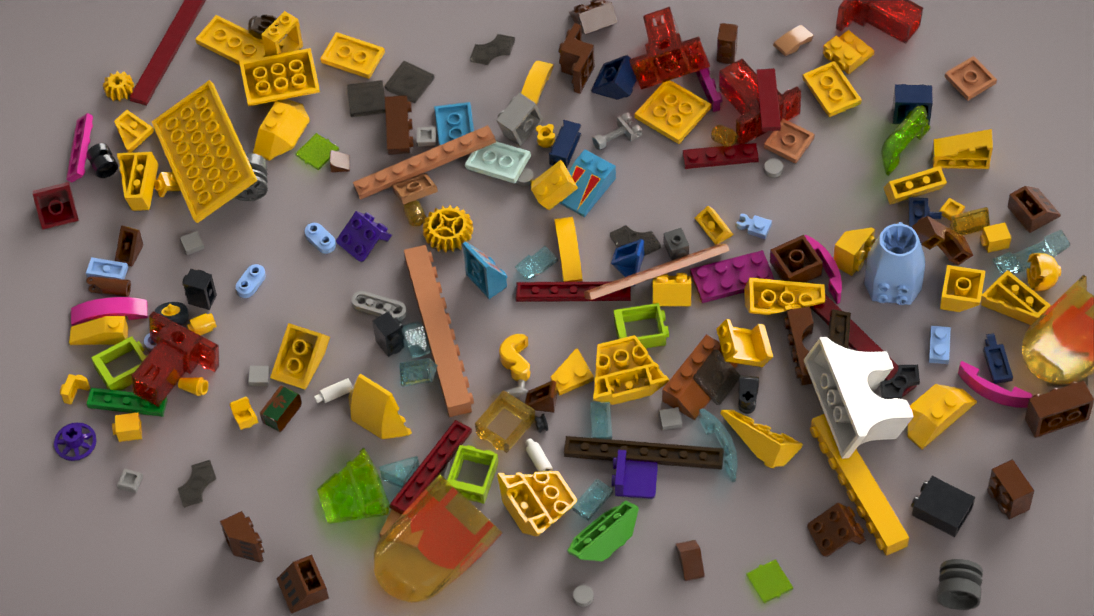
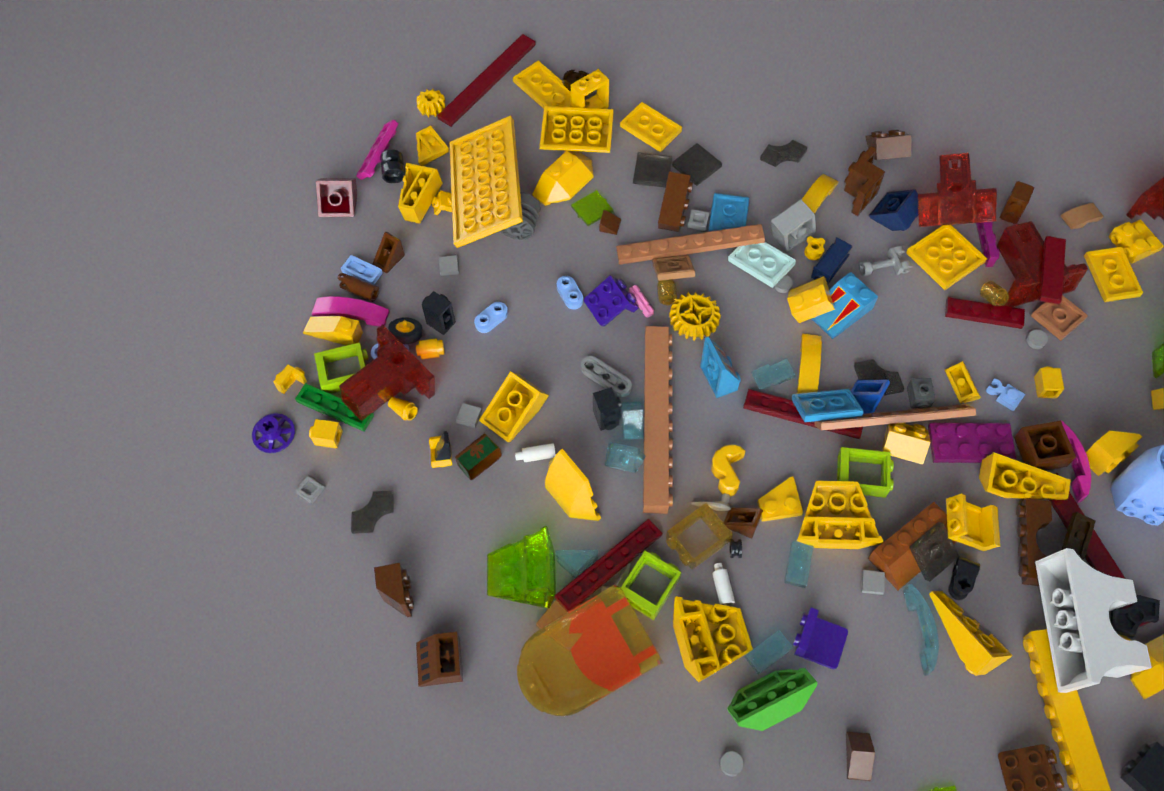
camera: 15 degrees right, 5 degrees up
(246, 409) = (443, 448): none -> black slope
(393, 228) = (641, 301): none -> bright pink axle
(592, 277) = (827, 405): none -> dark azure tile
(644, 451) = (838, 614): dark brown plate -> none
(790, 204) = (1049, 382): none -> yellow brick

